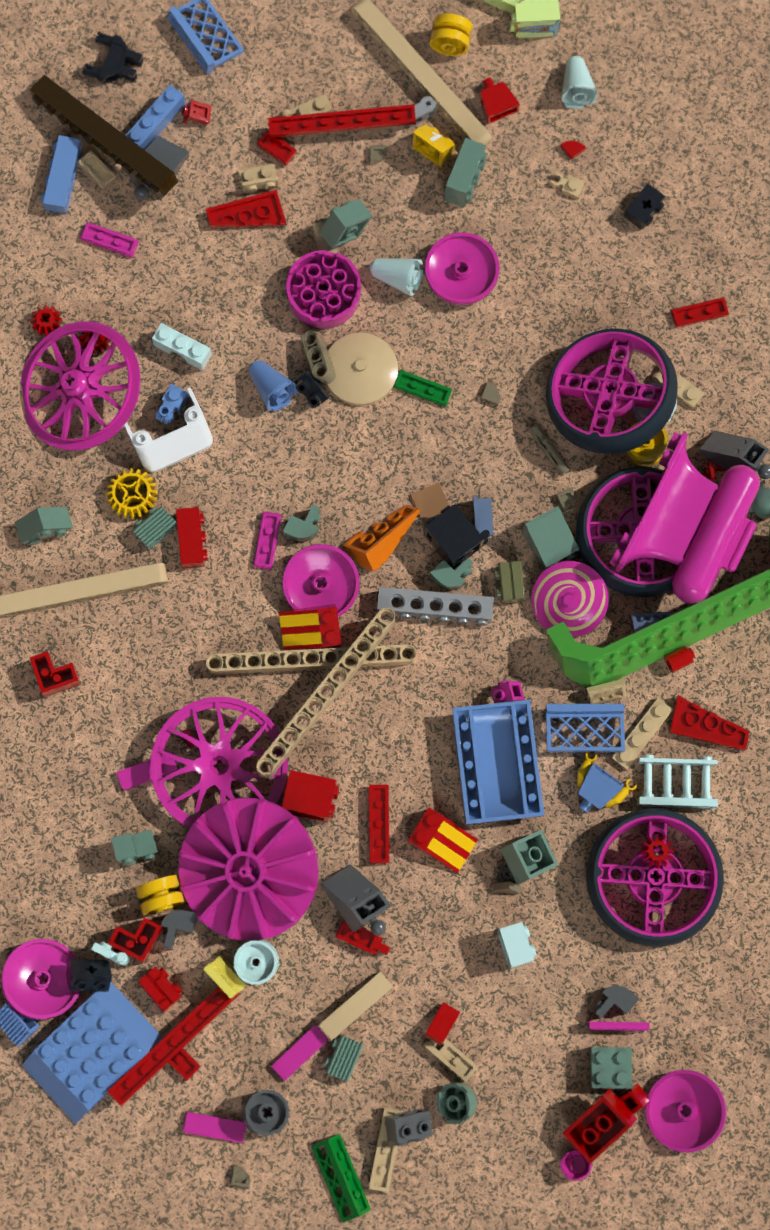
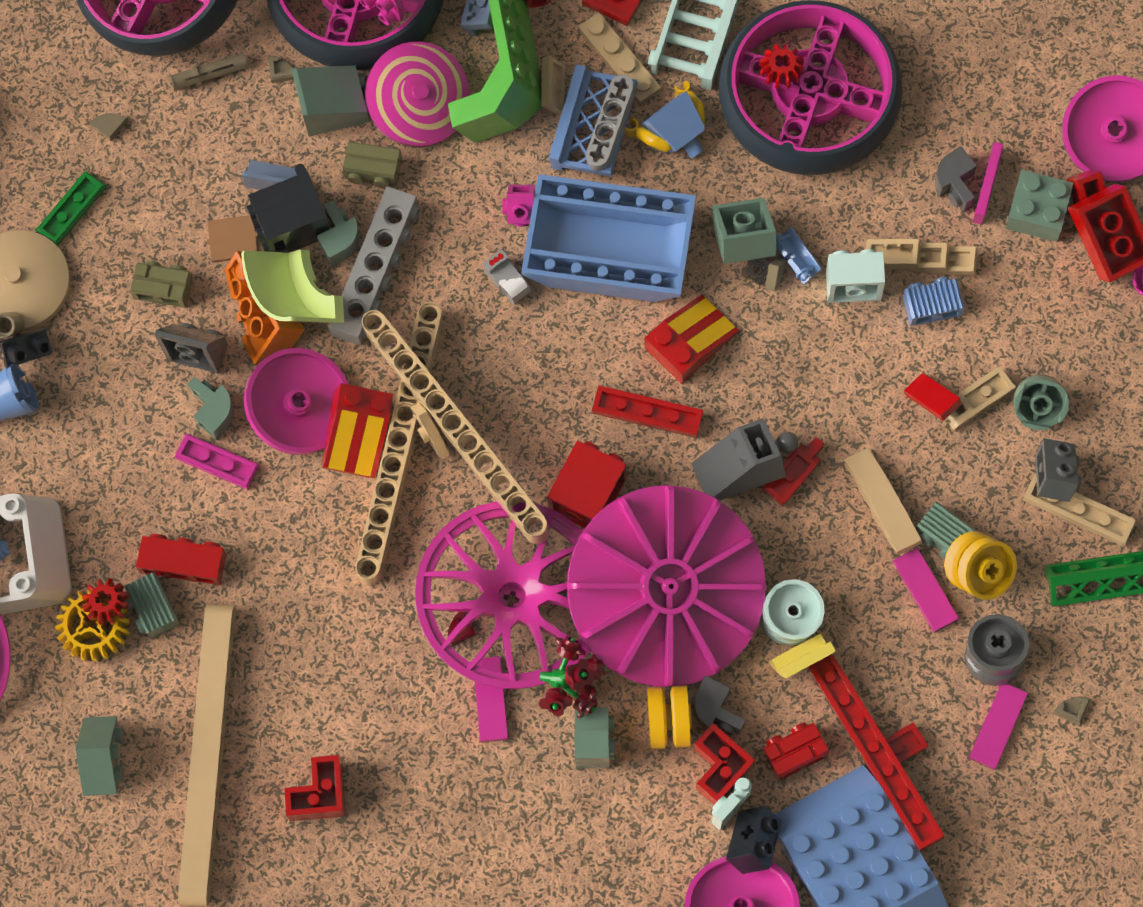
camera: 65 degrees left, 5 degrees down
(149, 491) = (94, 600): none -> red gear
(166, 825) = (574, 680): none -> dark red plant
(320, 675) = (429, 431): none -> tan plate
(322, 1087) = (980, 565): none -> yellow wheel
(342, 499) = (192, 347): none -> dark grey slope
(382, 465) = (161, 284): none -> olive brick
(395, 550) = (287, 289): none -> yellowish green panel
(451, 699) = (506, 277): none -> light grey leg
(515, 1007) = (933, 301): none -> medium blue brick
(521, 903) = (797, 255): none -> medium blue hinge
(548, 991) = (925, 257): none -> tan slope
(585, 740) = (610, 122): none -> light grey beam

